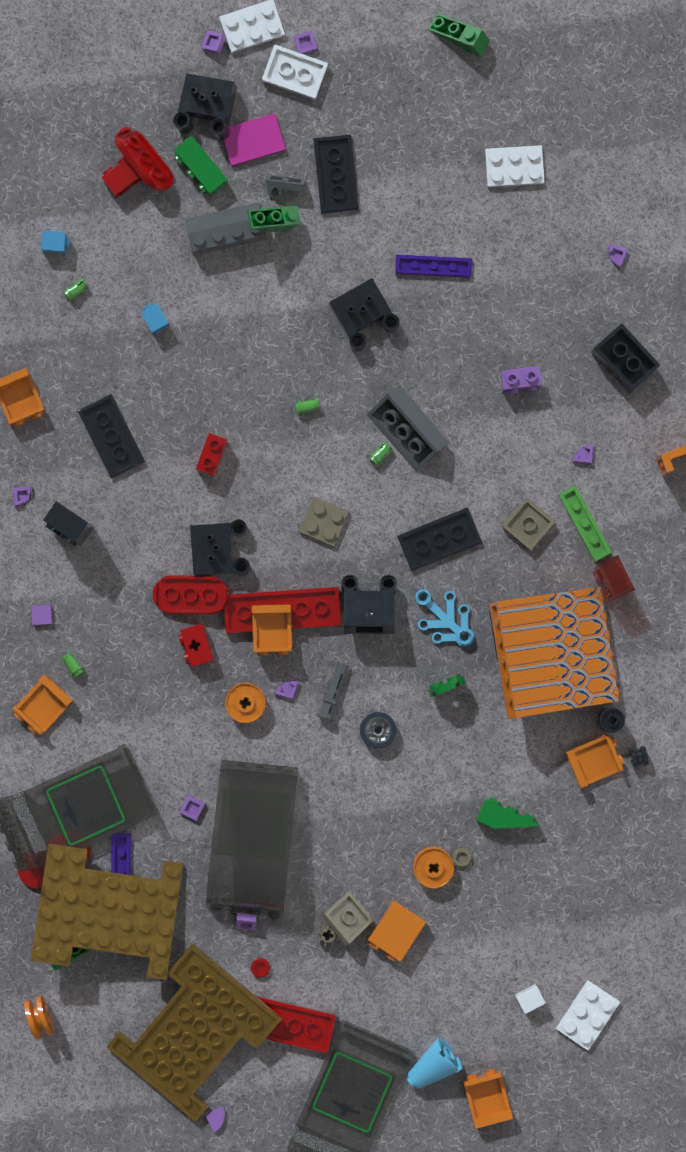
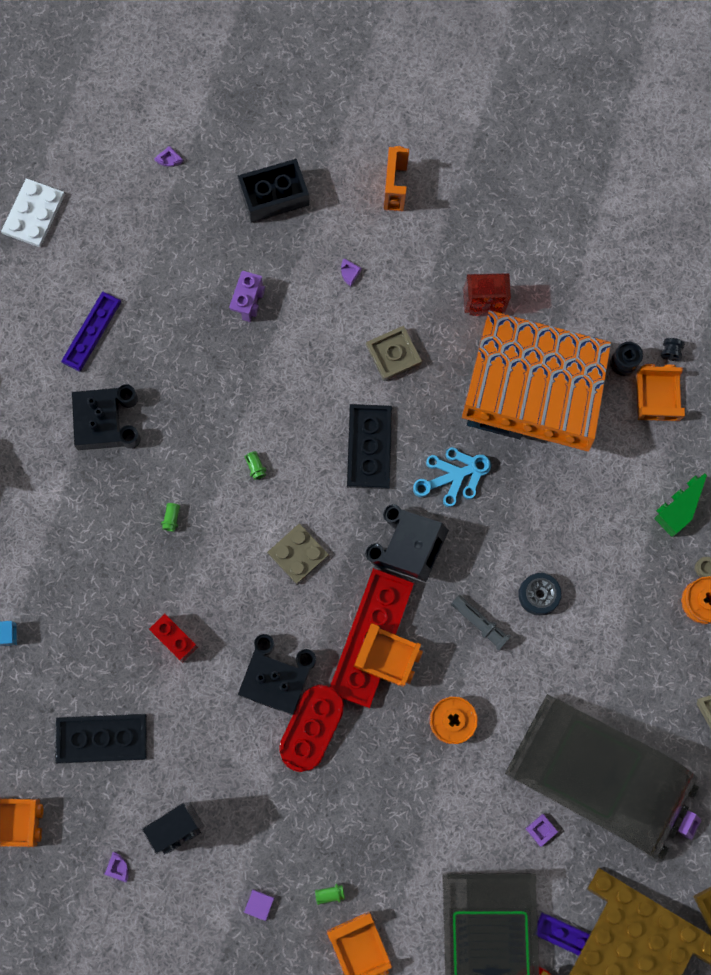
camera: 70 degrees left, 10 degrees down
(204, 651) = (381, 741): red brick -> none
(287, 689) = (457, 669): medium lavender tile -> none
(407, 428) = (242, 427): dark grey slope -> none
(452, 683) = (526, 501): green plate -> none
(584, 523) = (418, 300): bright green plate -> none

